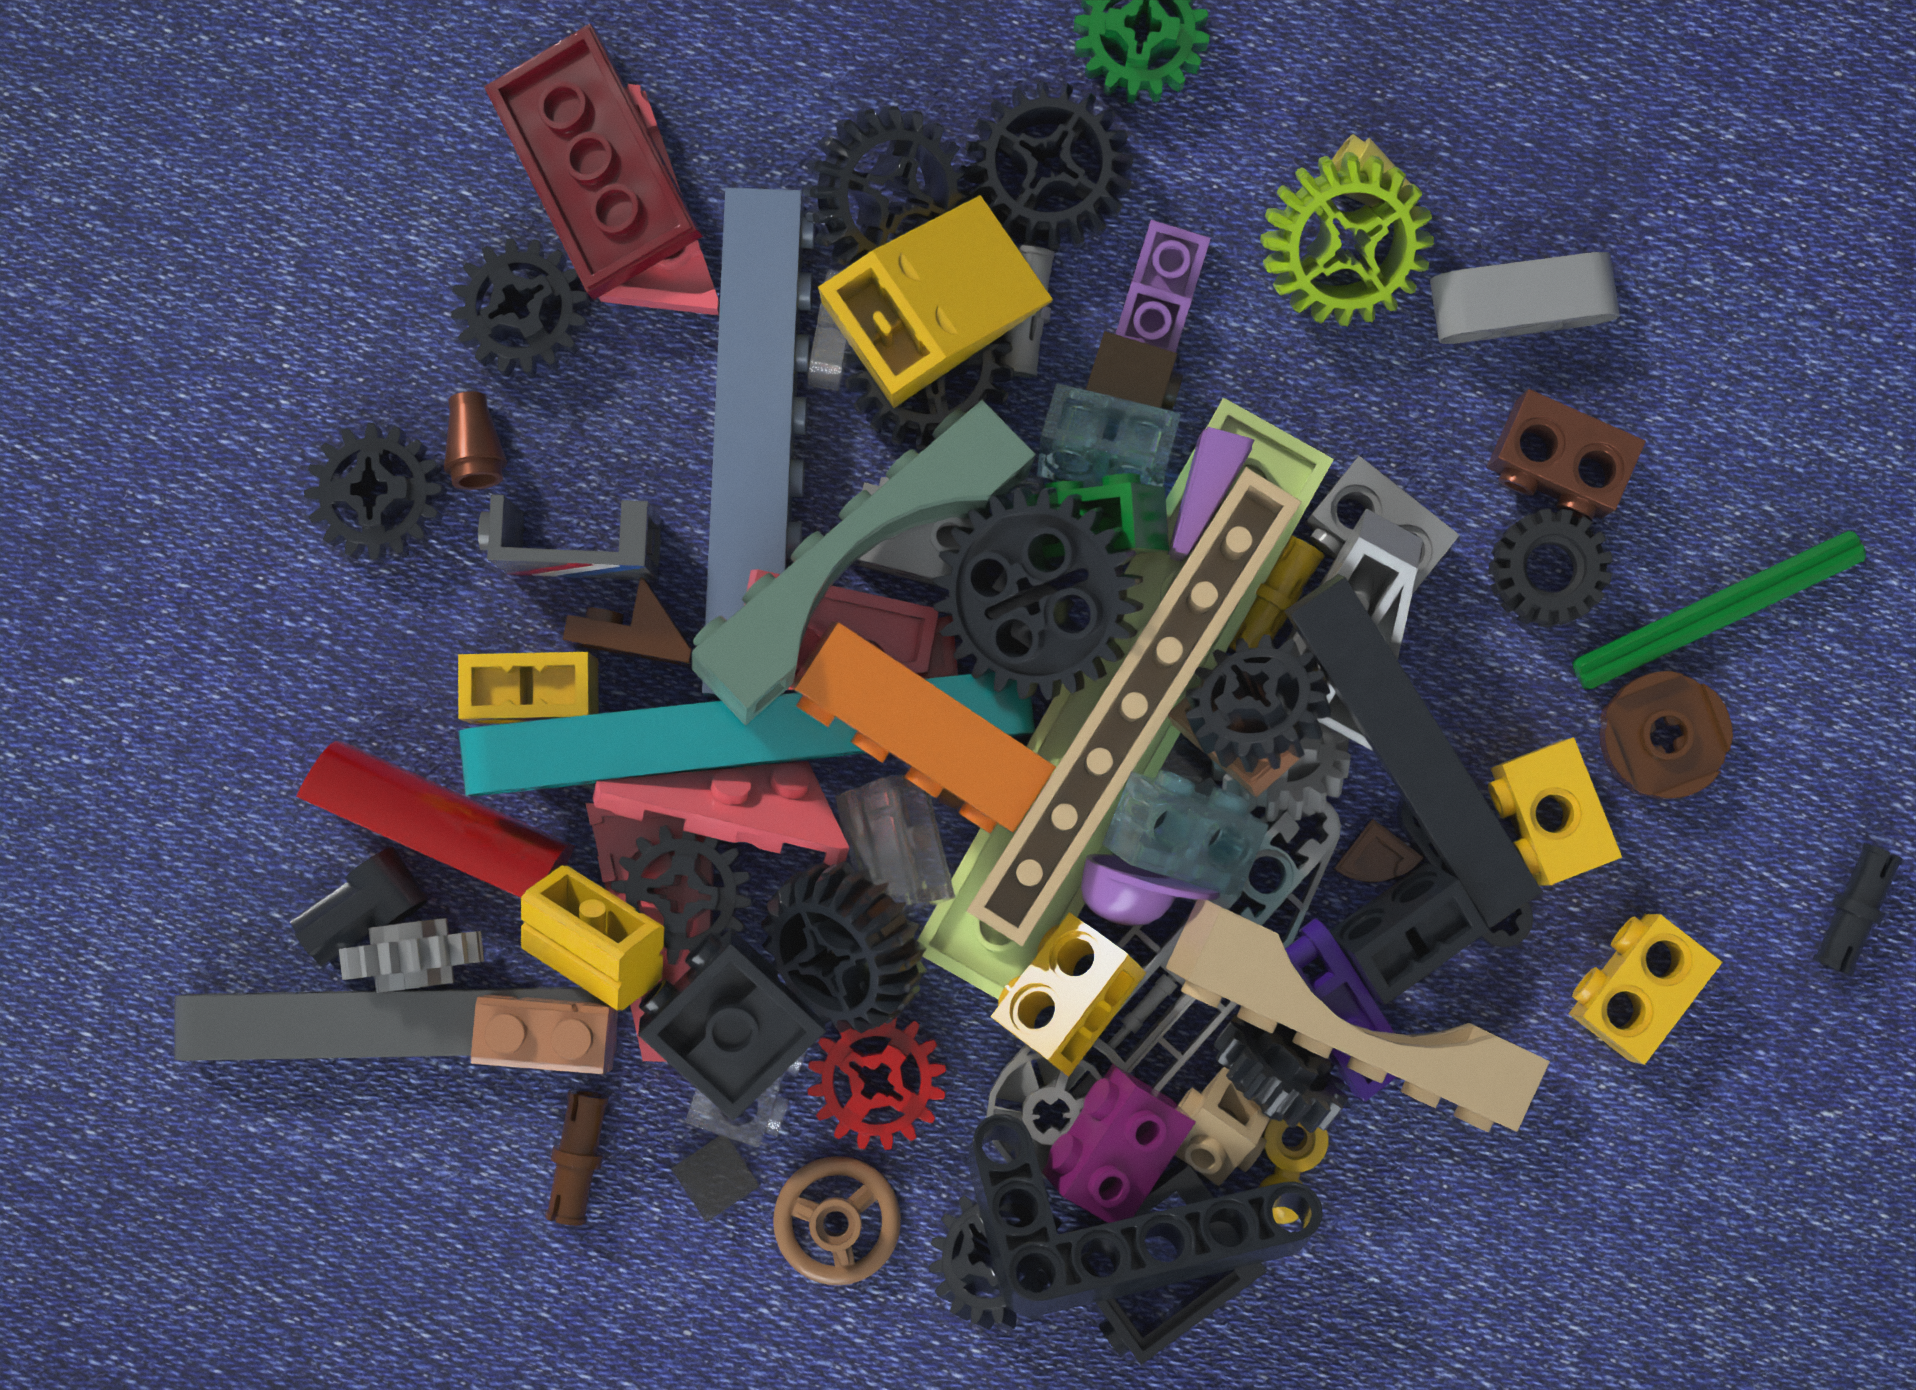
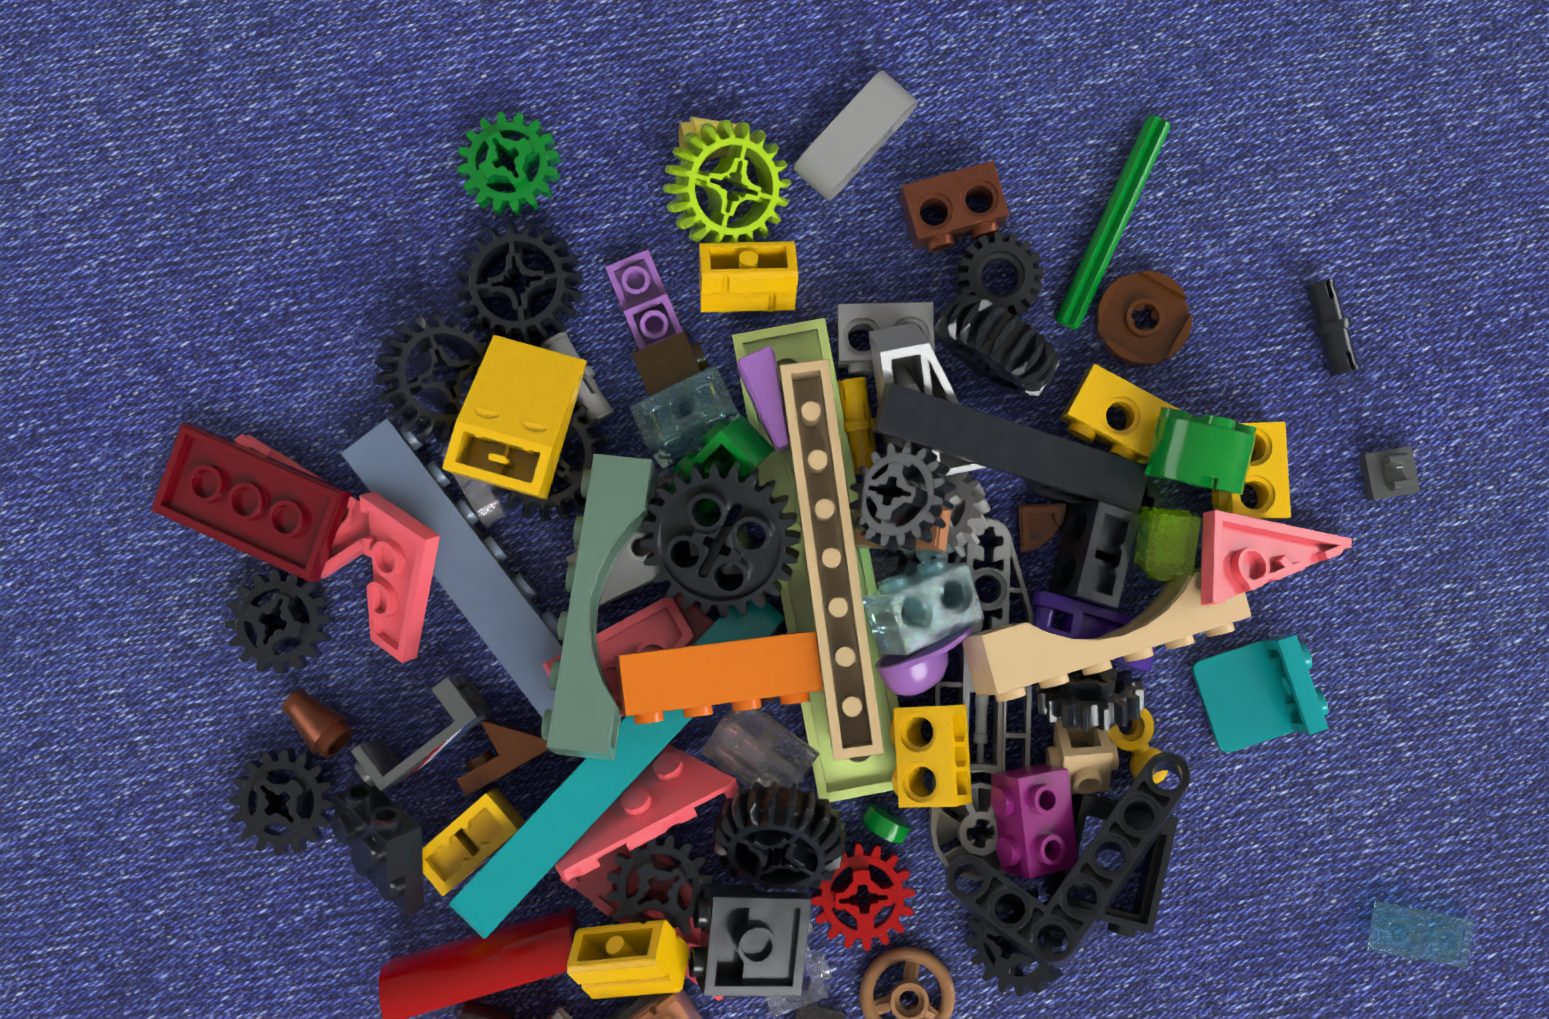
camera: 40 degrees left, 0 degrees up
(443, 618) = (383, 843): none -> black plate
(687, 359) = (402, 575): none -> coral wing
(962, 1027) = (886, 823): none -> green tile
(1289, 351) = (747, 276): none -> yellow brick
(1459, 1219) = (1260, 692): none -> teal bracket
(1488, 634) = (997, 345): none -> black gear
(1492, 983) = (1167, 542): none -> clear neon green brick
(1573, 1065) = (1250, 551): none -> coral wing
(1607, 915) = (1201, 450): none -> green brick
(1788, 1111) = (1389, 473): none -> dark grey tile

